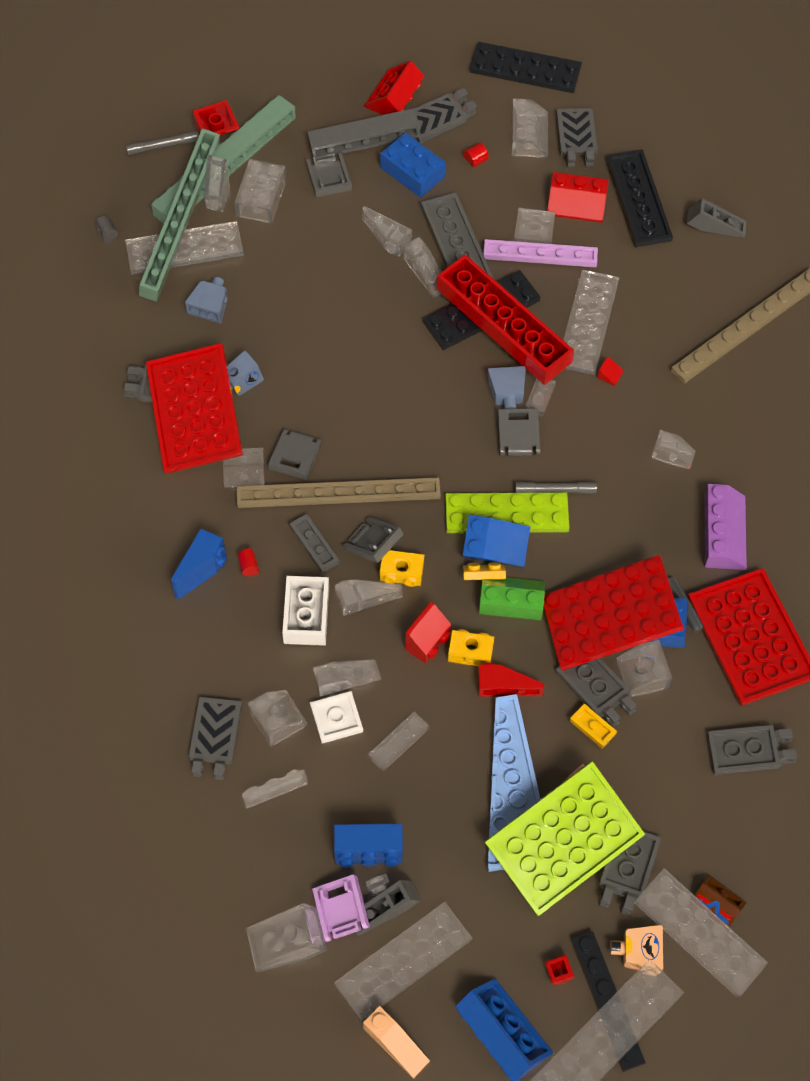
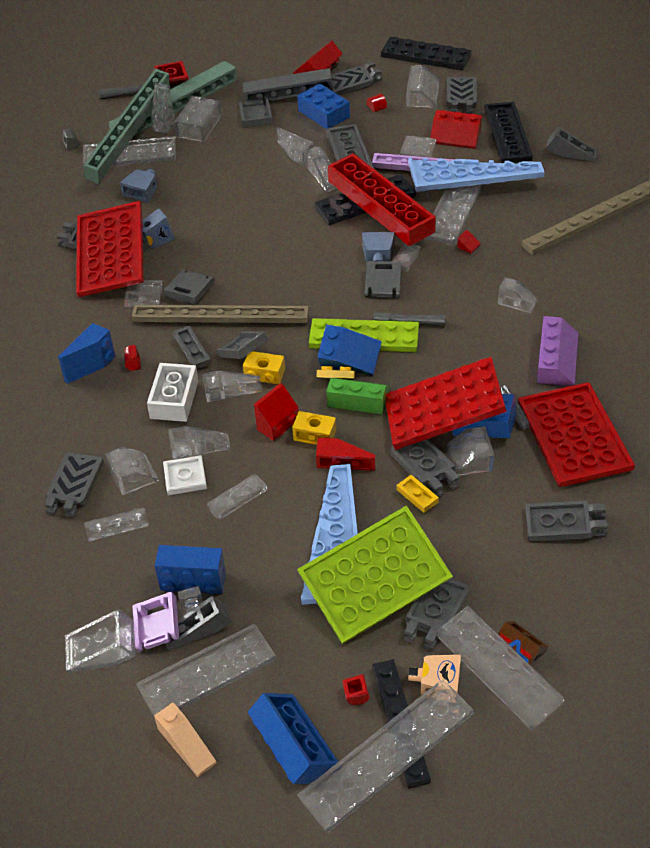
camera: 10 degrees right, 15 degrees down
(590, 271) = (466, 172): none -> light blue wing

